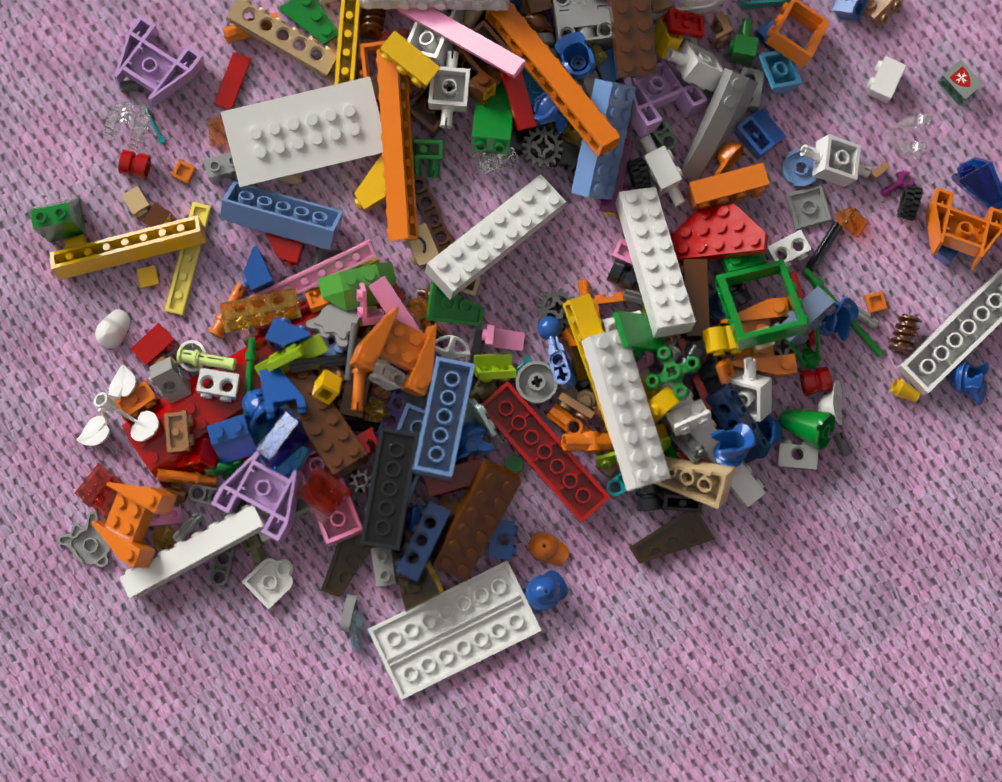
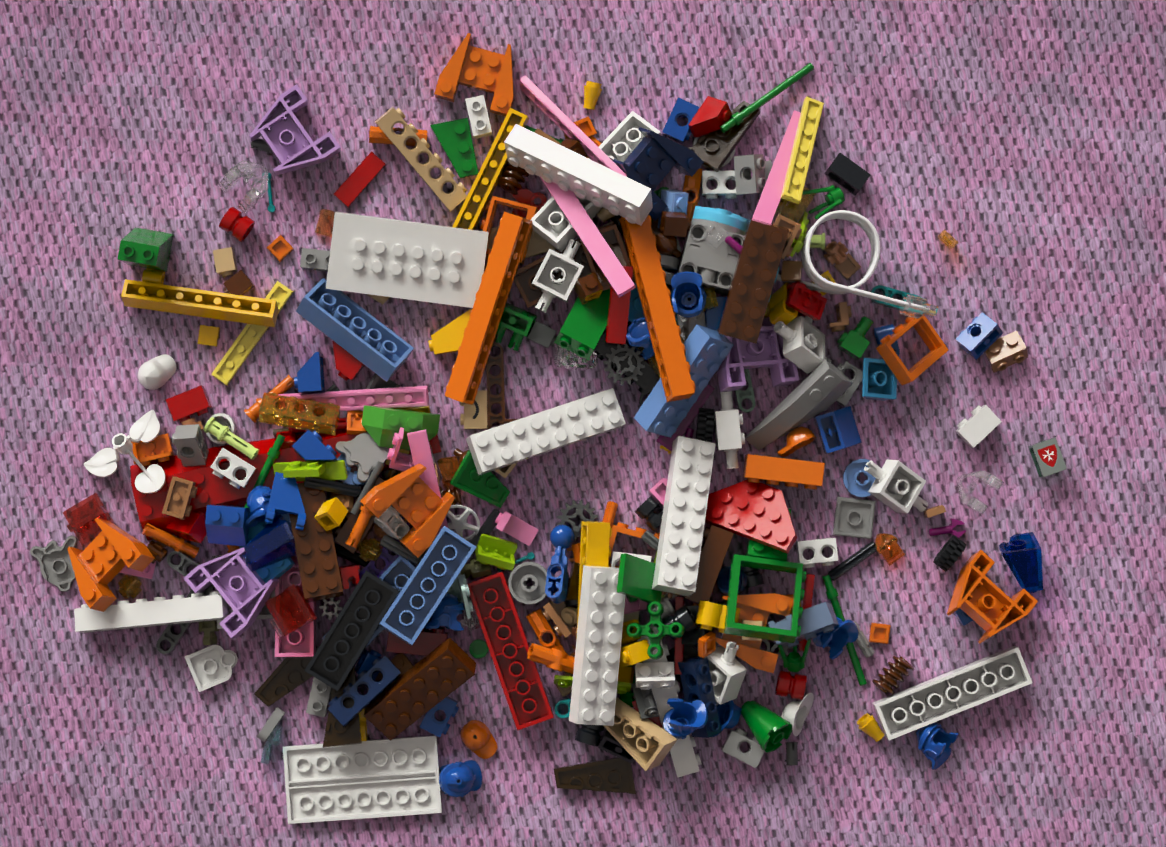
camera: 25 degrees right, 5 degrees up
(188, 526) = (154, 586): light grey axle -> none
(226, 469) = (213, 549): green plate -> none
(404, 398) = (399, 549): none -> dark grey axle
(409, 60) = (528, 238): yellow brick -> none
(456, 154) = (543, 335): none -> dark grey brick

